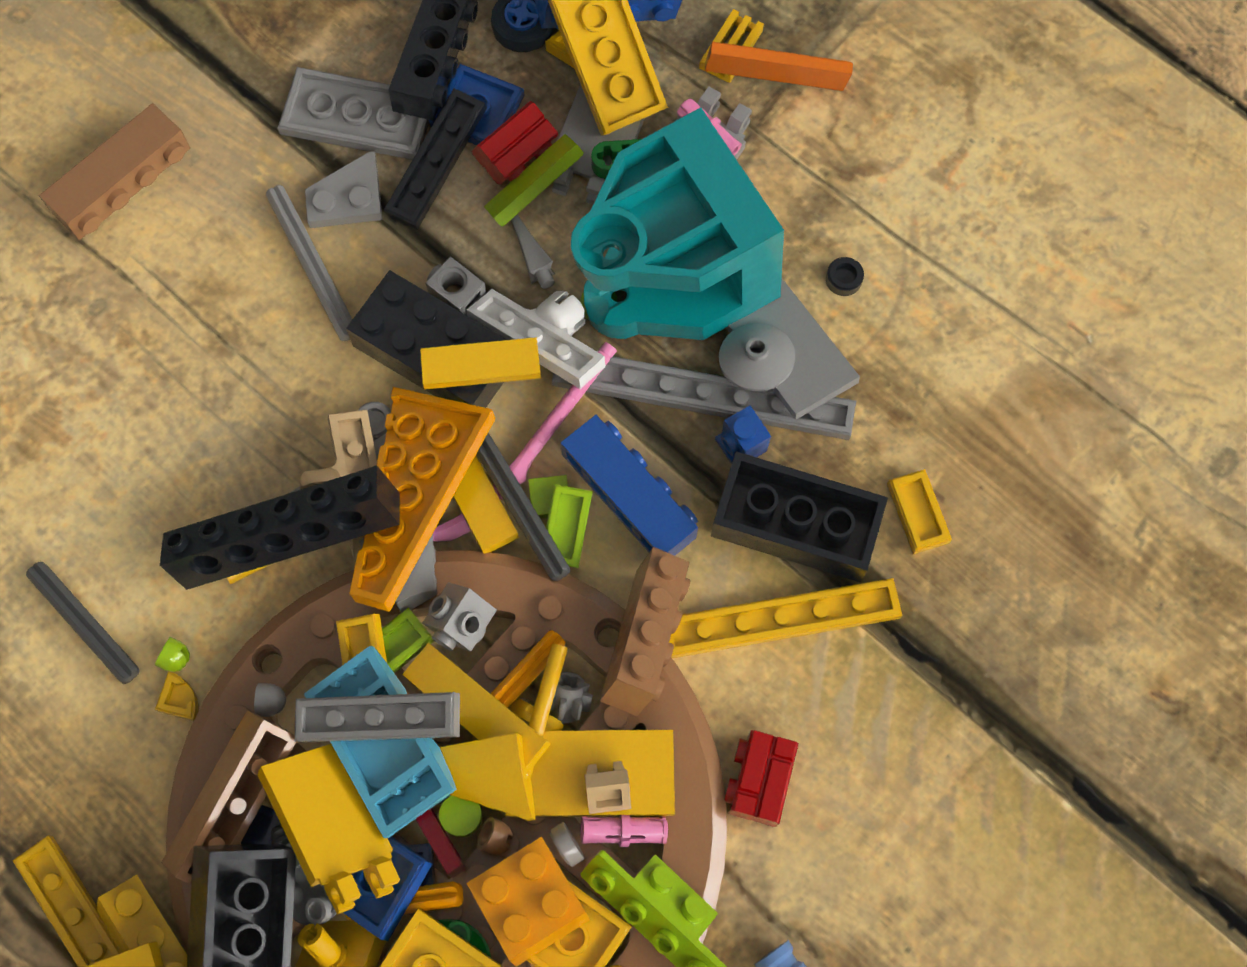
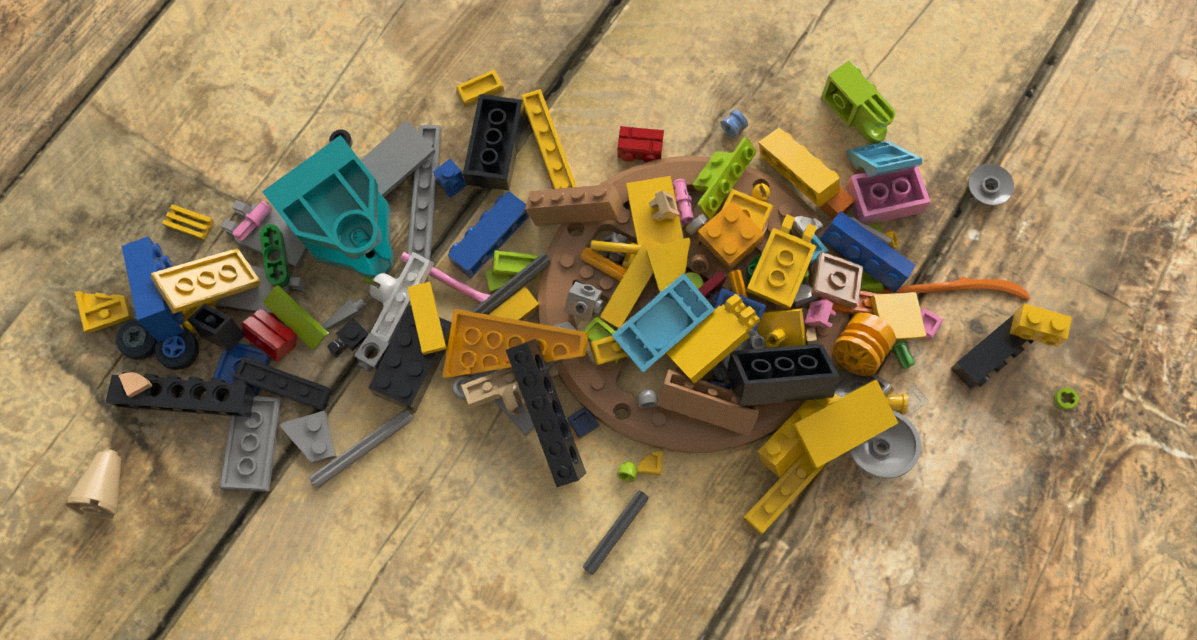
camera: 95 degrees left, 0 degrees up
(115, 171) = (310, 586): medium nougat brick -> none
(272, 596) = (582, 422): none -> dark blue tile
(377, 717) = (652, 322): light grey tile -> none
(494, 261) = (349, 336): none -> black plate
(534, 68) = (216, 327): none -> black brick
(754, 370) = (406, 182): light grey dish -> none
(778, 66) = (204, 189): orange tile -> none

